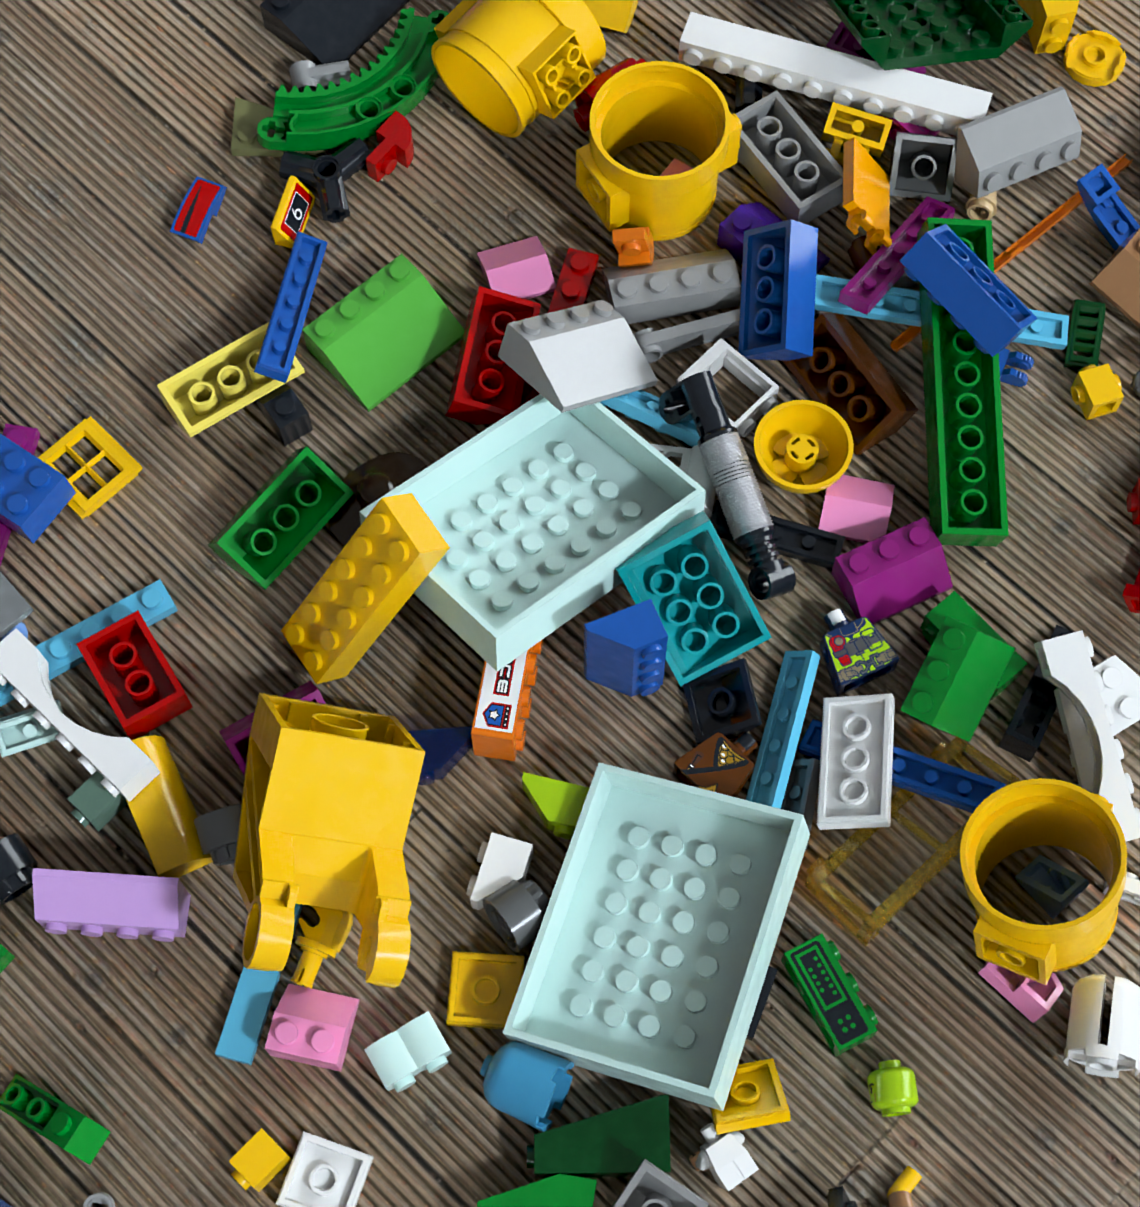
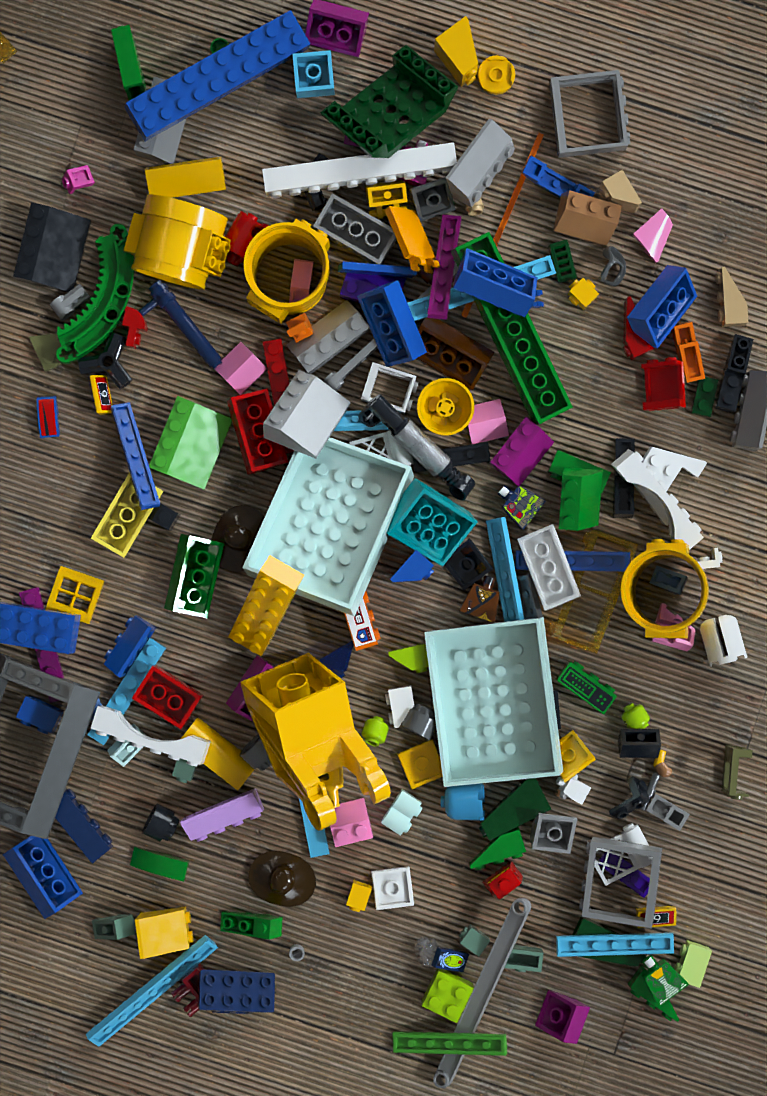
camera: 25 degrees left, 20 degrees up
(122, 572) = (128, 645): none -> blue slope
(148, 1069) = (282, 878): none -> dark brown hat
(435, 893) = (375, 731): none -> lime head
(460, 137) = (168, 302): none -> dark blue cylinder
(780, 209) = (376, 269): none -> blue tile
(880, 1134) = (639, 743): none -> black brick

